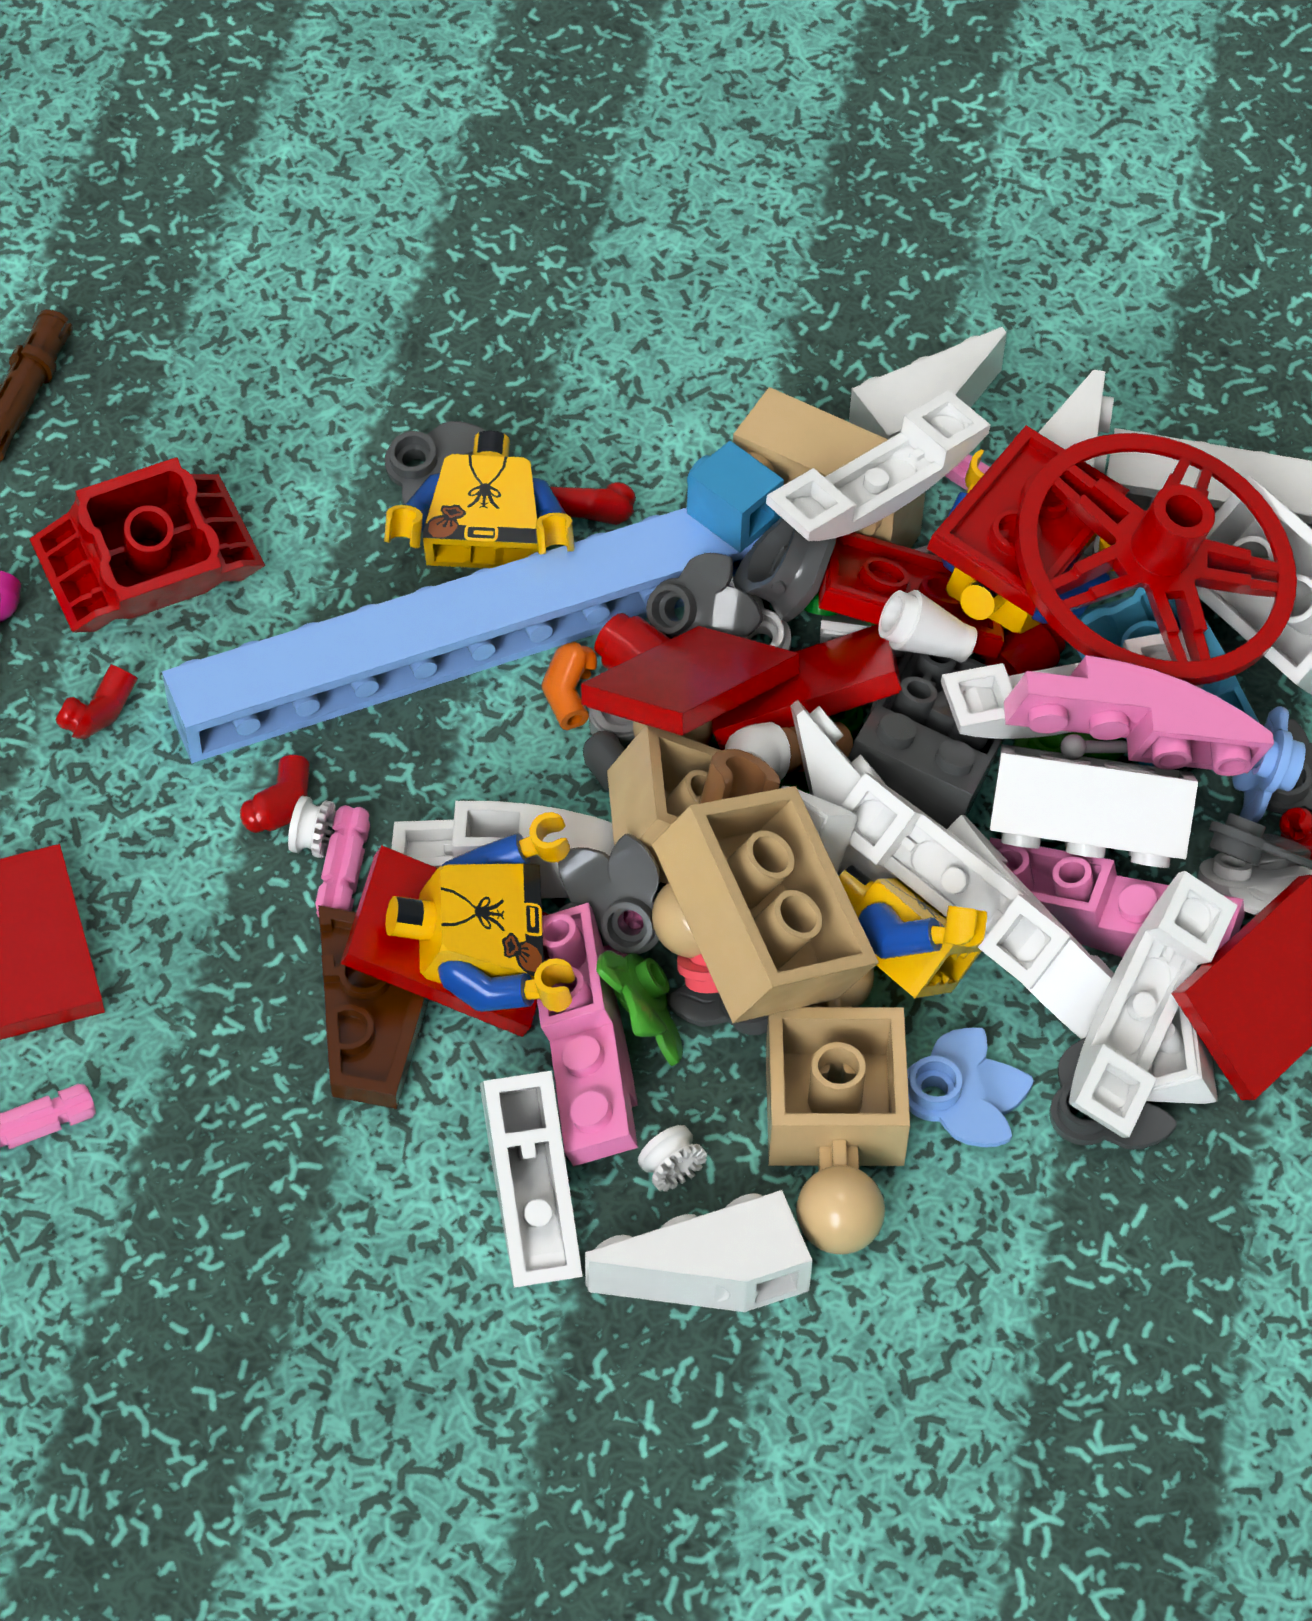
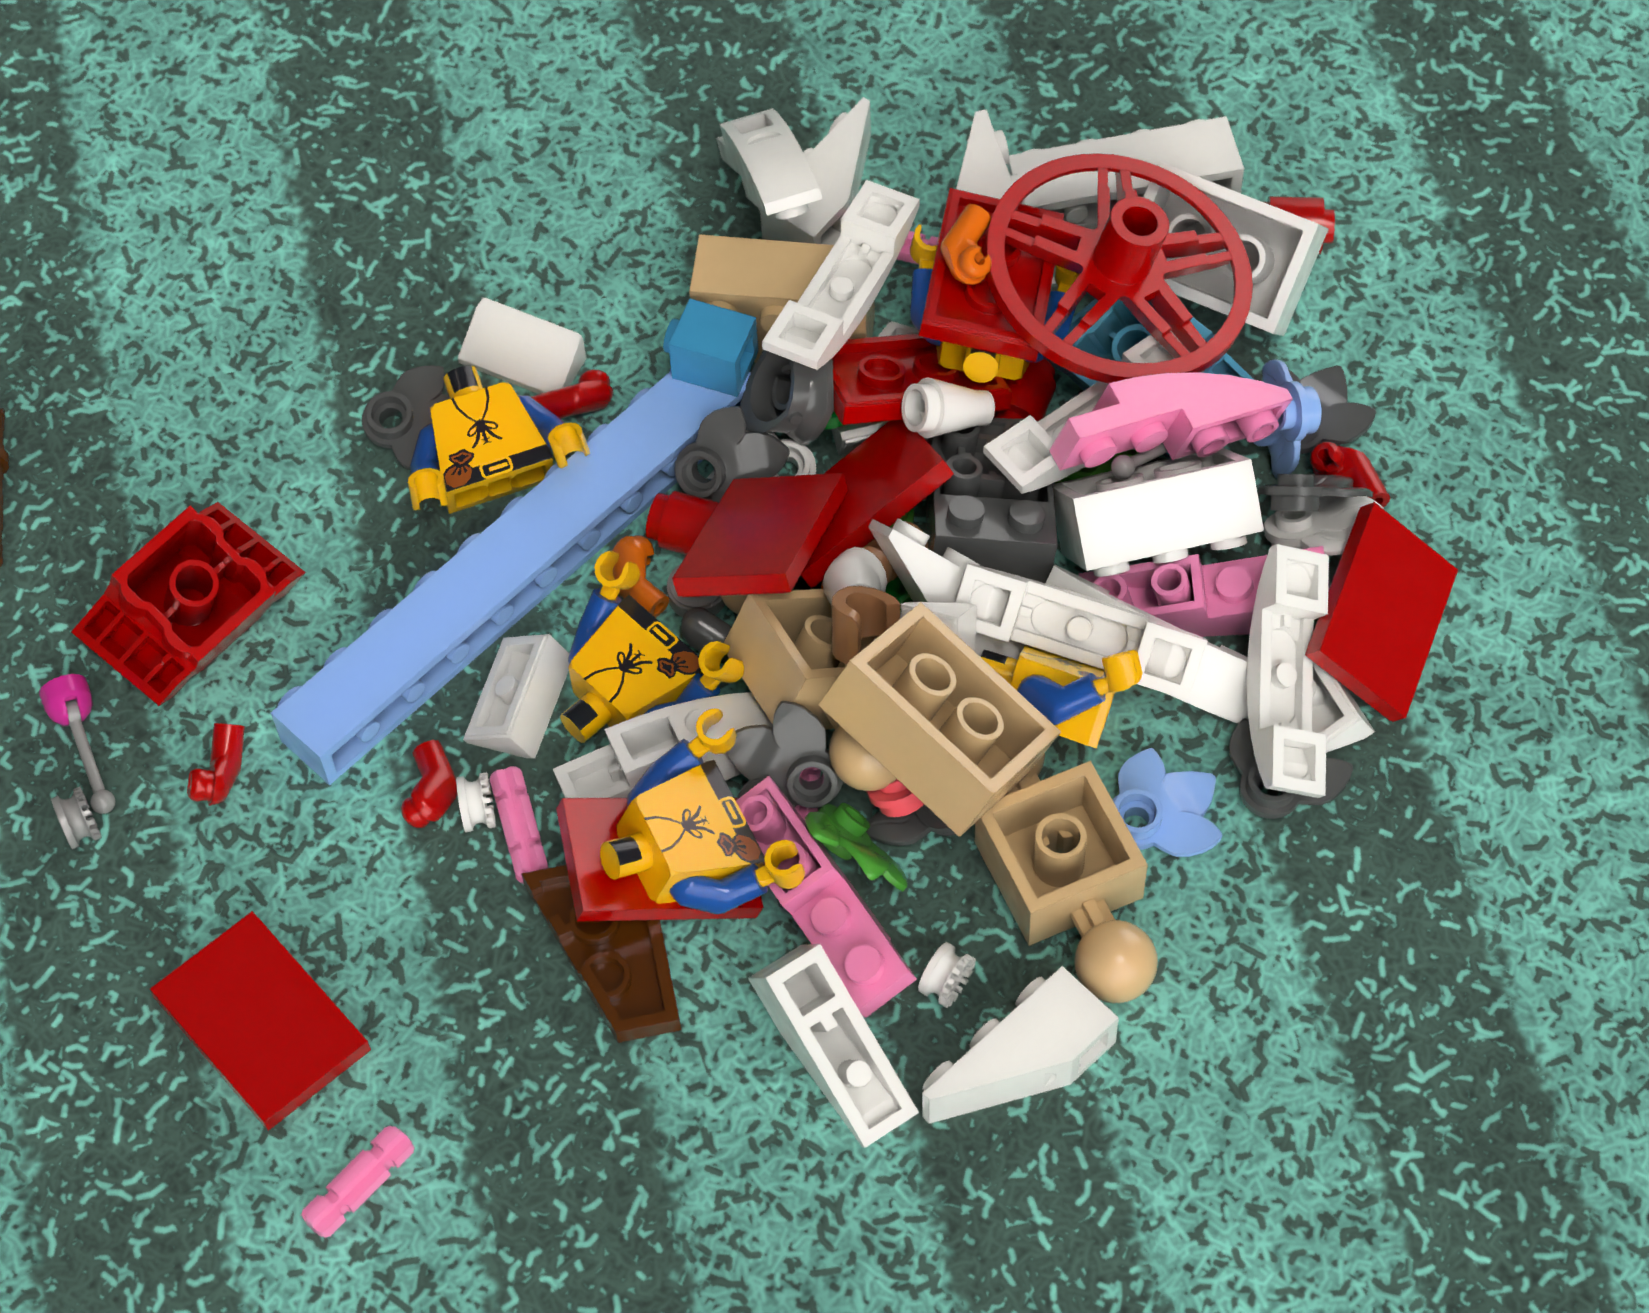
camera: 20 degrees left, 5 degrees up
(405, 750) = (519, 695): none -> white slope
(520, 751) = (631, 662): none -> torso
(567, 441) = (521, 348): none -> white slope
(872, 350) = (769, 163): none -> white slope
(1004, 480) = (961, 247): none -> orange arm

